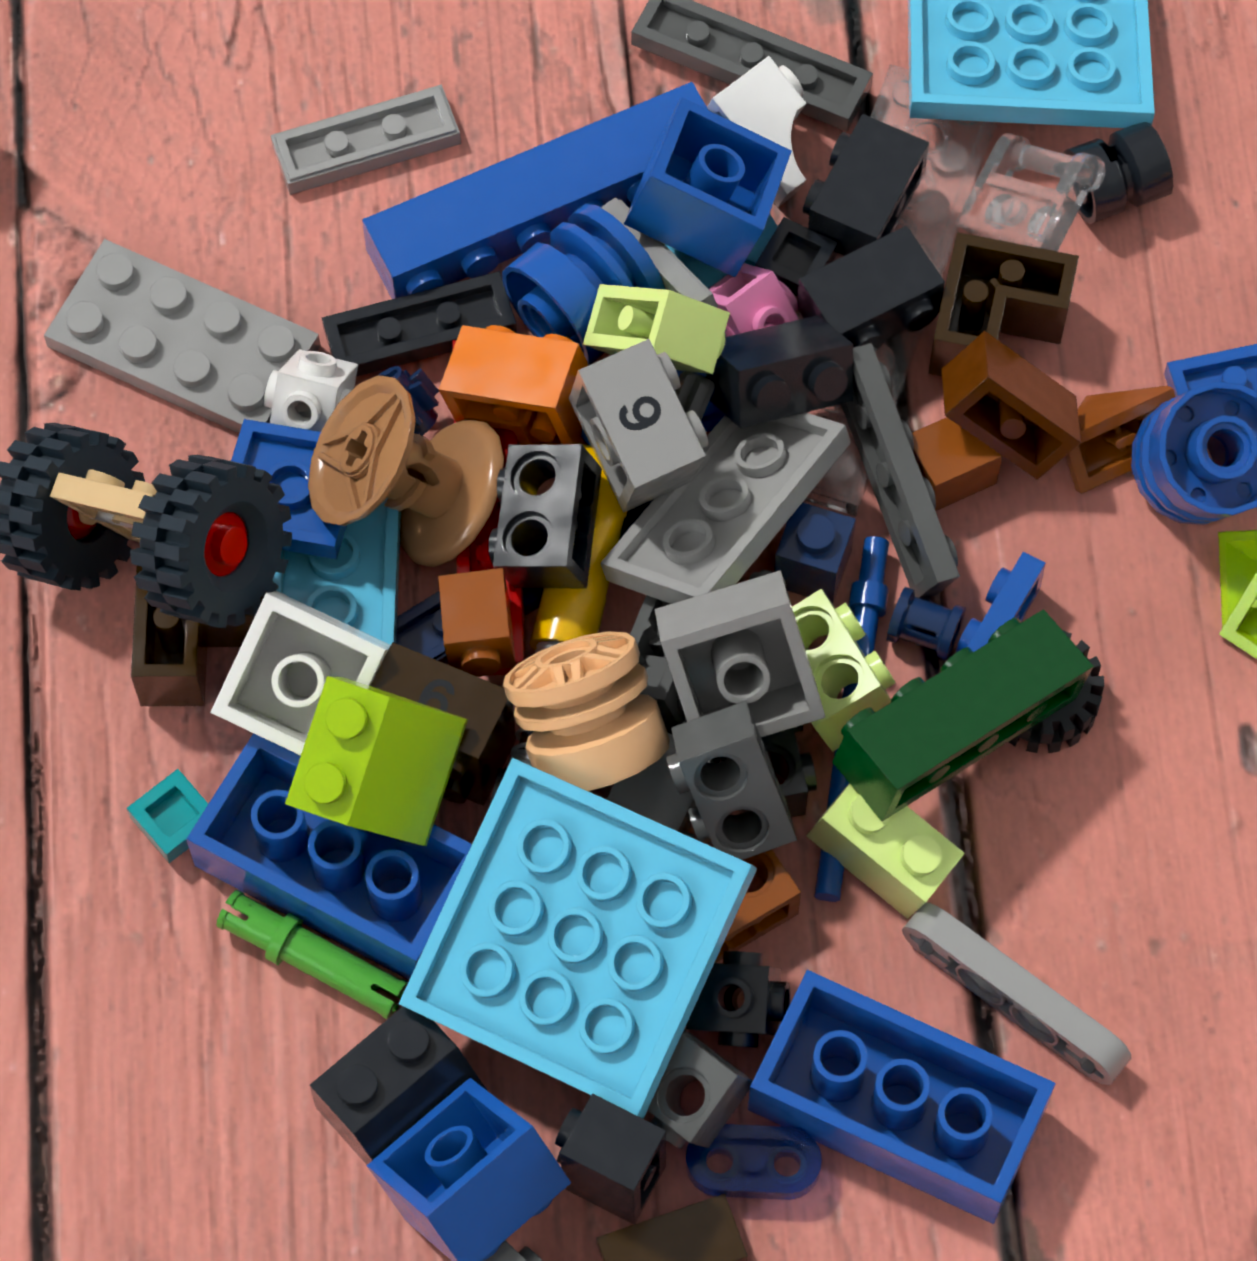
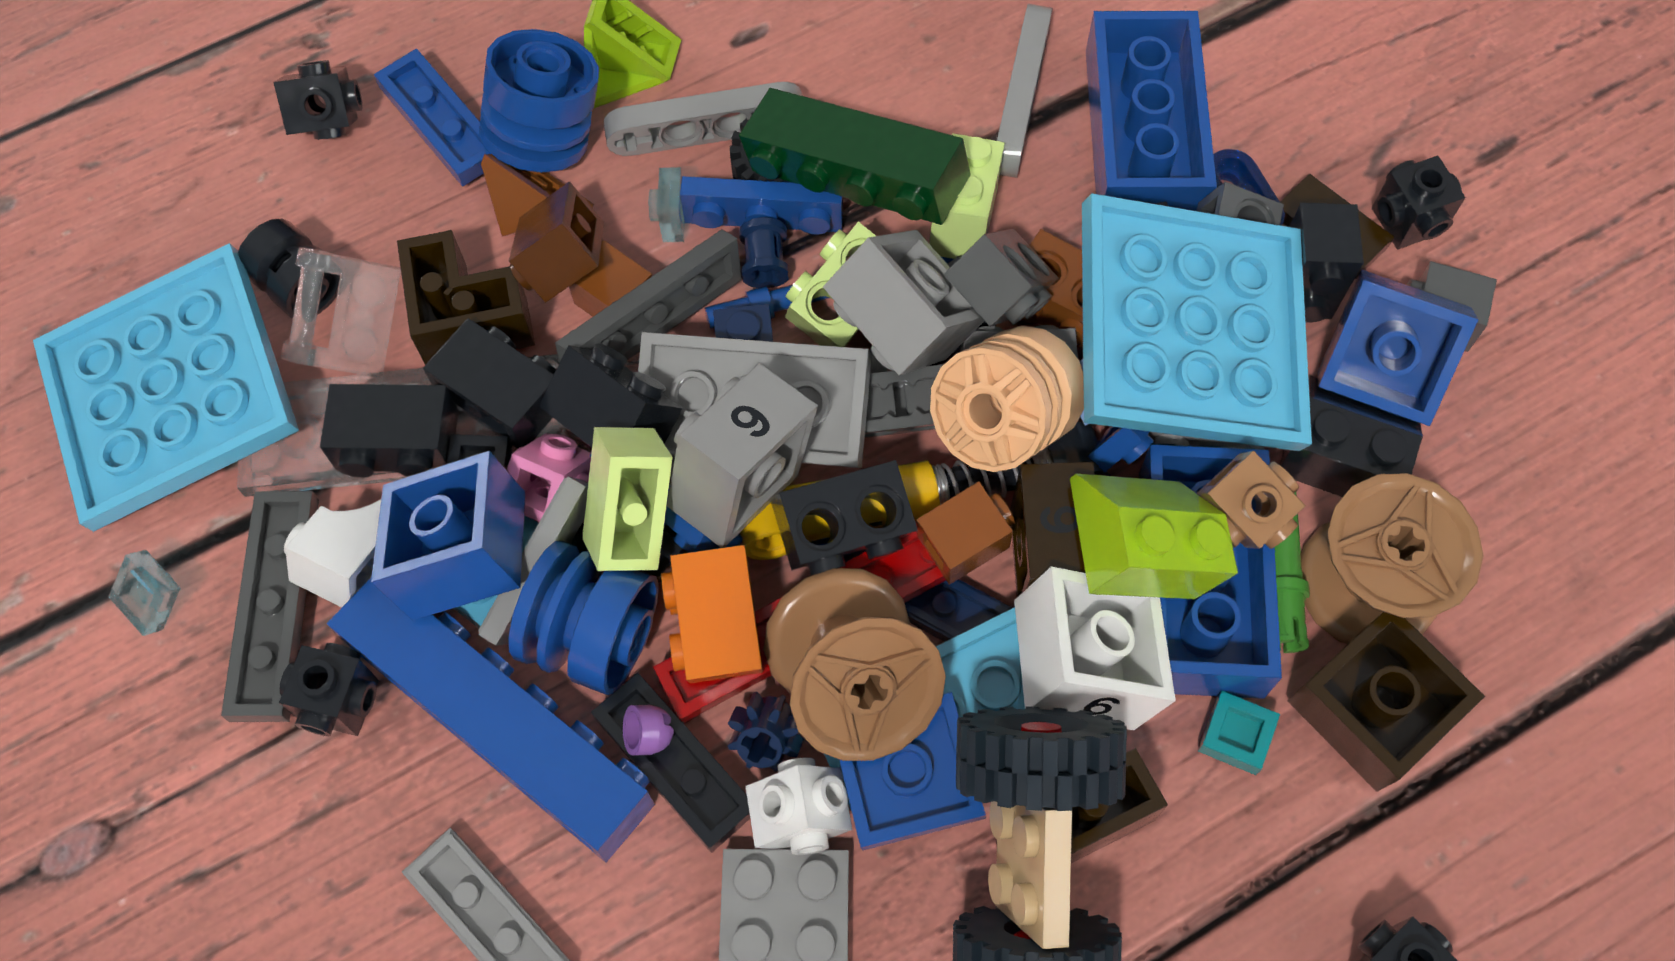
camera: 115 degrees left, 0 degrees up
(123, 948) = (1386, 700): none -> dark brown brick
(245, 1022) = (1391, 550): none -> medium nougat piece
(355, 874) = (1274, 495): none -> medium nougat brick
(450, 296) = (646, 729): none -> medium lavender hinge
(632, 67) = (328, 690): none -> black brick
(1035, 542) = (666, 205): none -> clear light blue plate
(1133, 638) = (648, 129): none -> light grey beam

